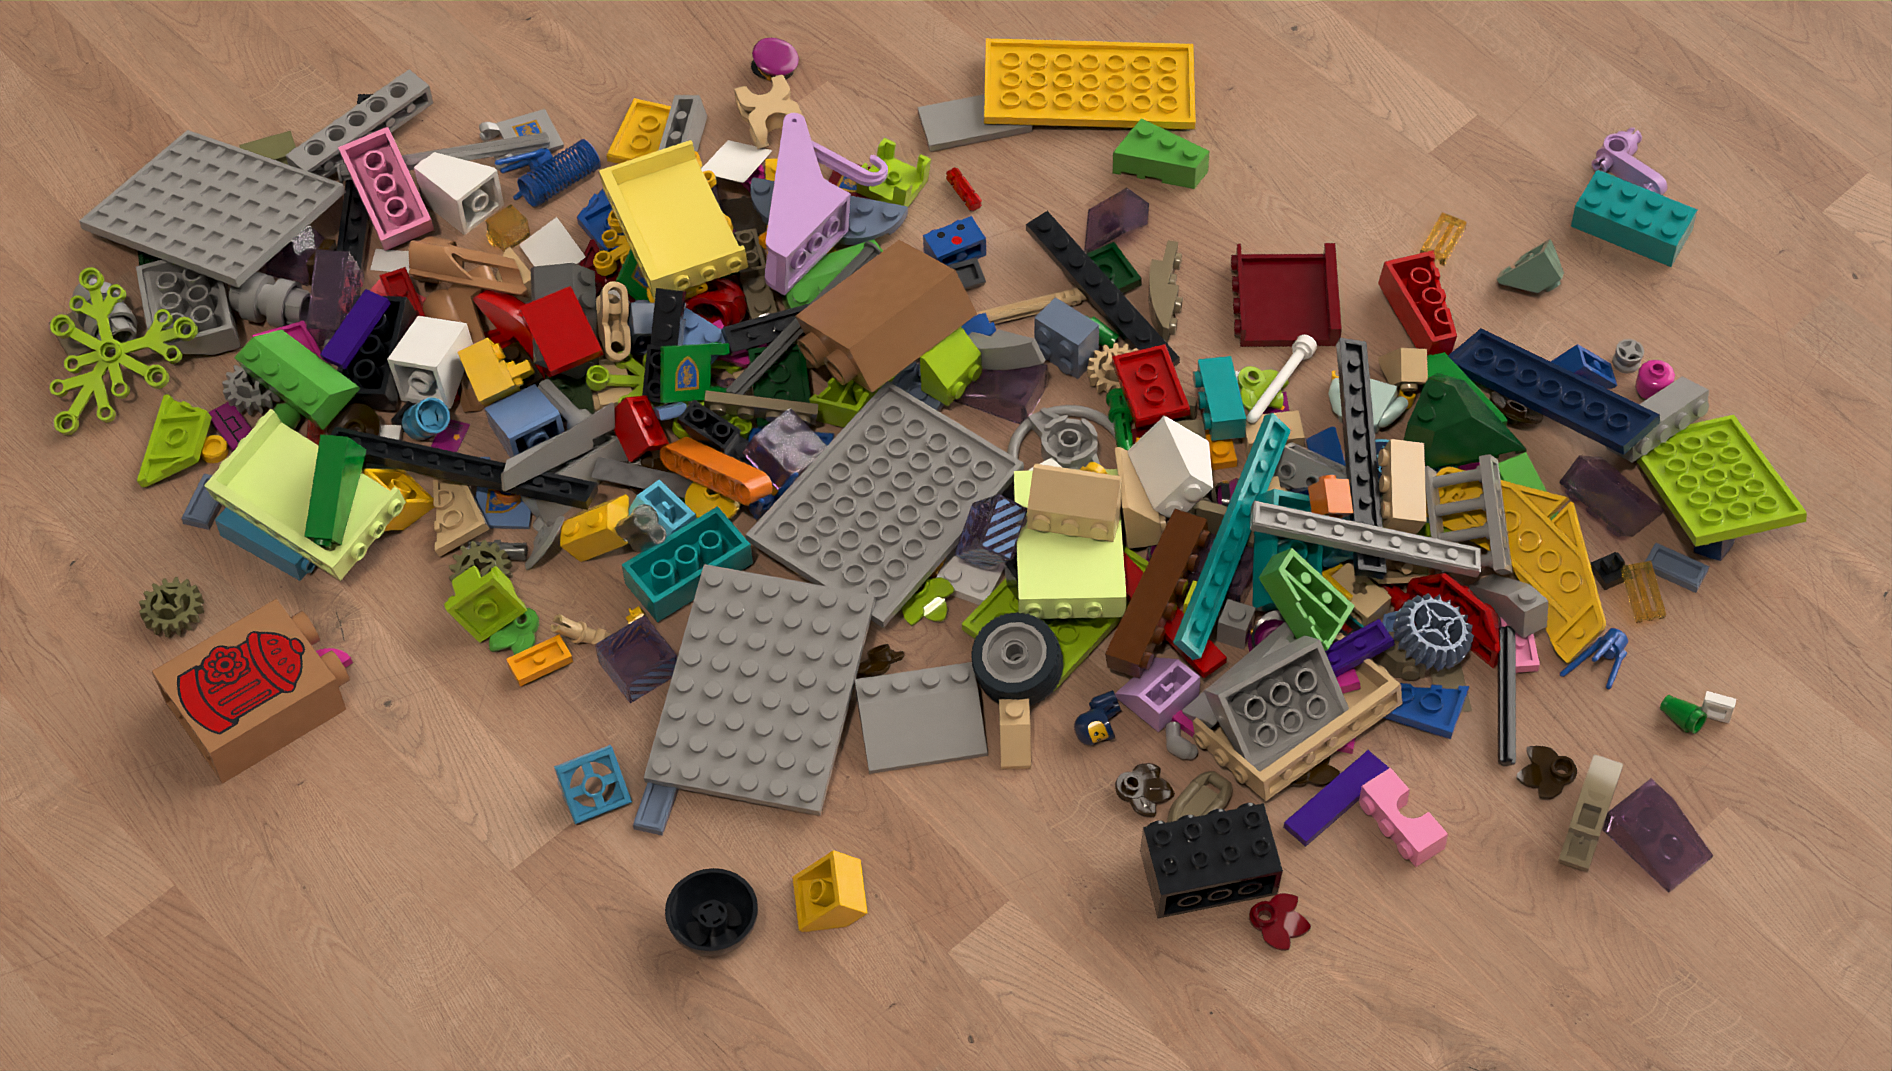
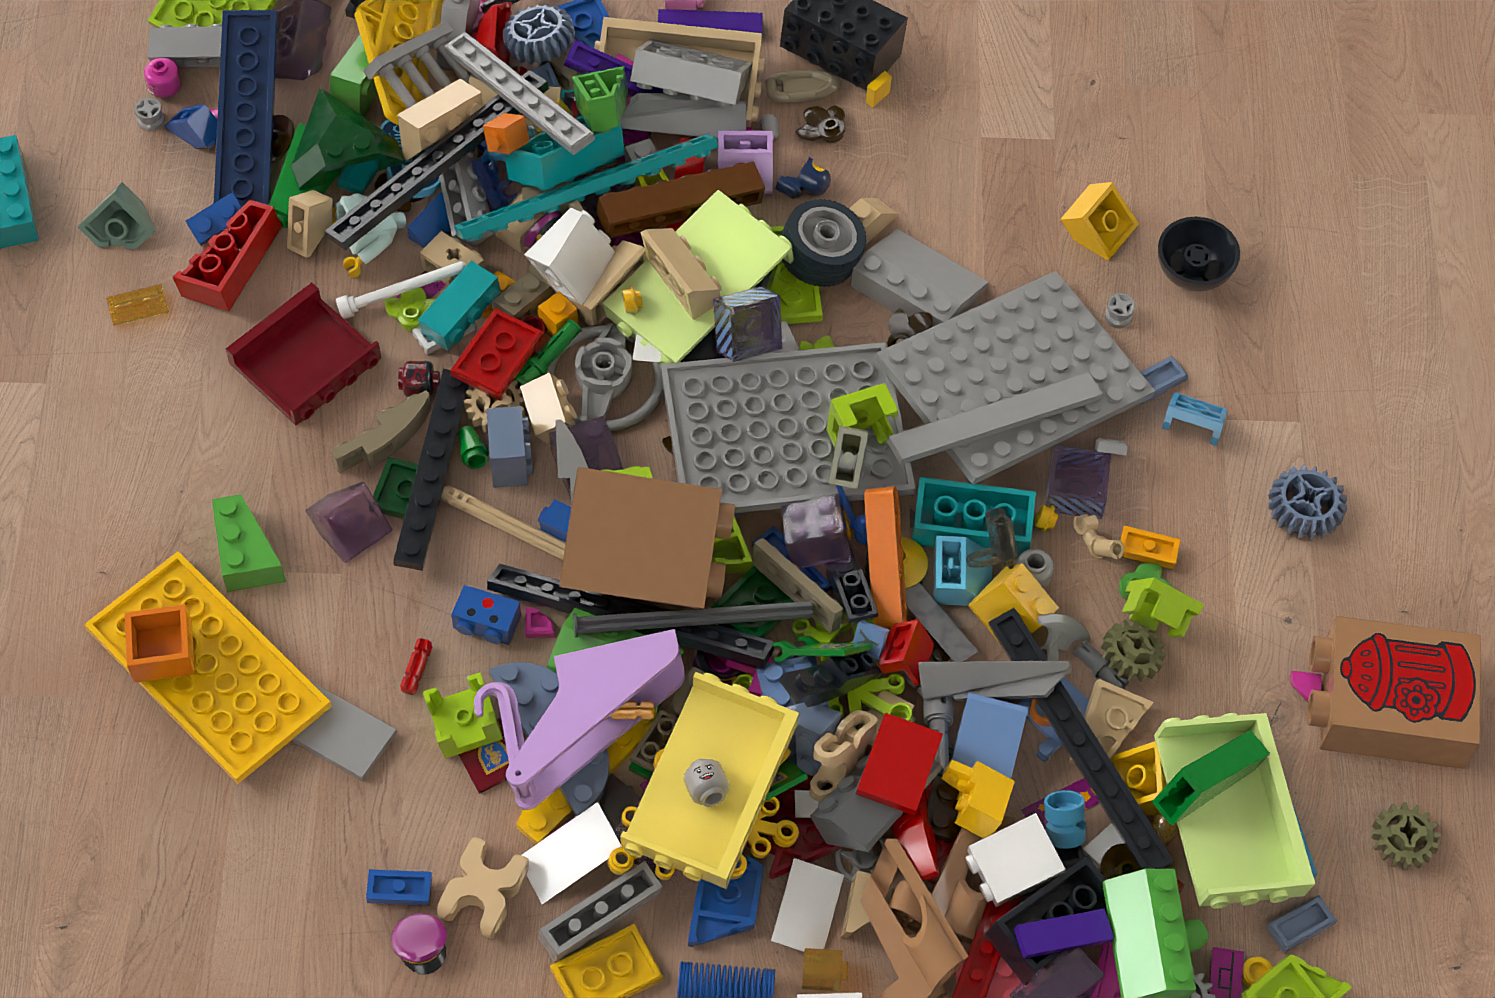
camera: 140 degrees left, 5 degrees up
(447, 803) = (1304, 510): none -> sand blue gear
(606, 565) = (1038, 564): none -> light grey head
(634, 697) = (1110, 446): none -> light grey tile
(670, 208) = (706, 782): none -> light grey head
(731, 617) = (994, 418): none -> light grey tile
(735, 823) = (1122, 303): none -> light grey wheel
(802, 483) = (848, 457): none -> olive slope
(821, 75) = (399, 887): none -> blue plate
(829, 525) = (863, 410): none -> lime panel
(1073, 390) = (547, 402): none -> brick
(1121, 49) = (159, 643): none -> orange piece
(1132, 853) = (878, 89): none -> yellow tile
(1191, 343) = (418, 377): none -> head
(1472, 323) = (213, 218): none -> blue plate

